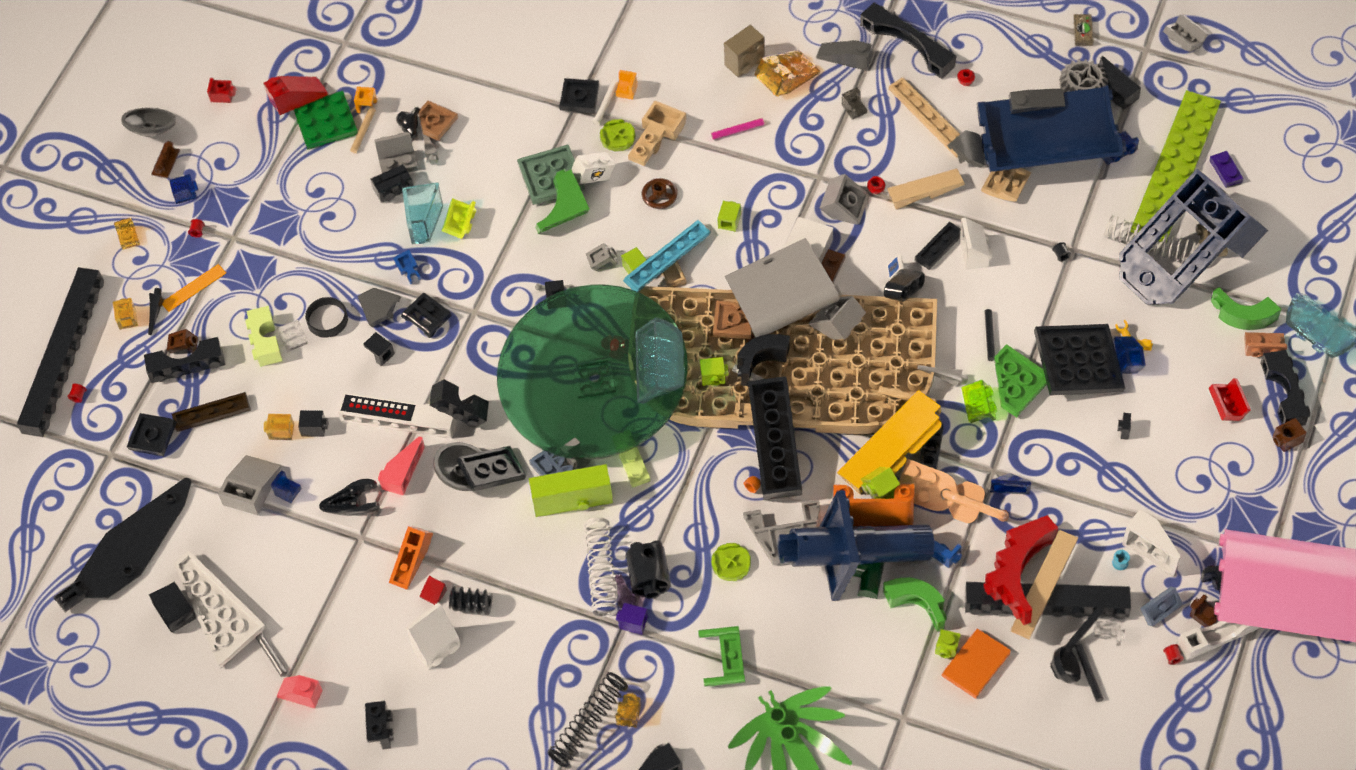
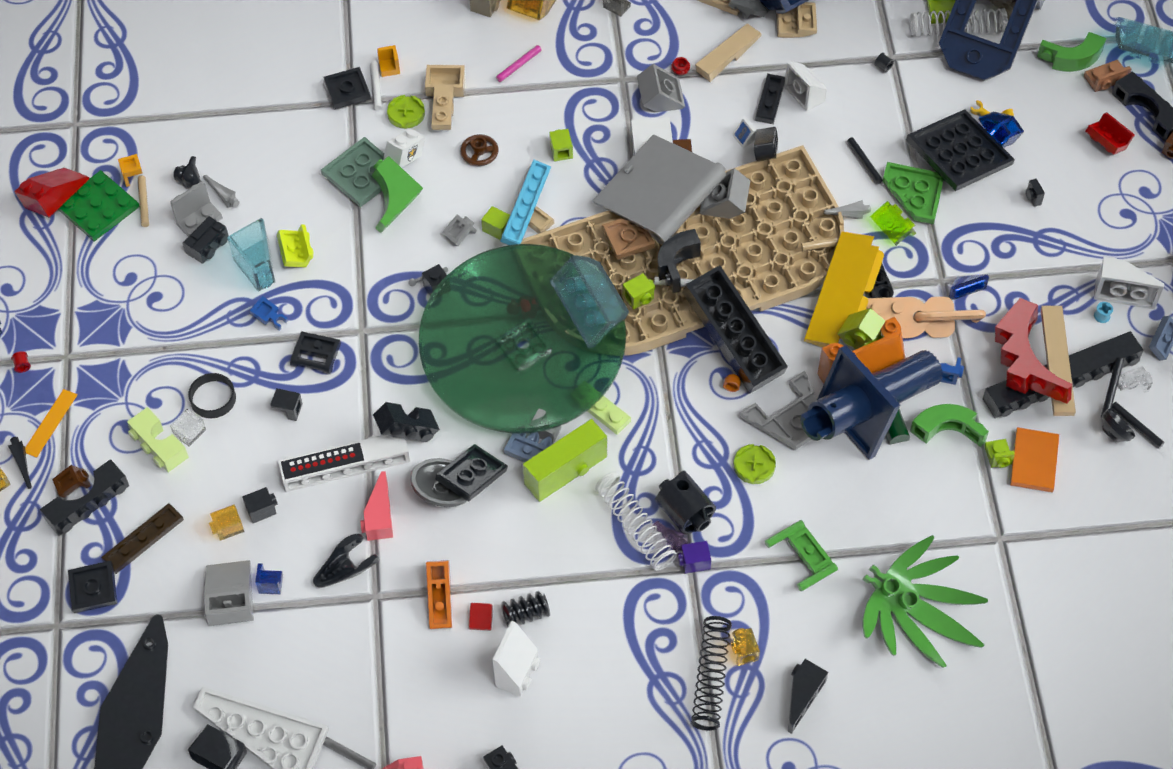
camera: 30 degrees left, 0 degrees up
(378, 305) = (259, 362): dark grey slope -> none
(436, 120) = (215, 163): medium nougat plate -> none

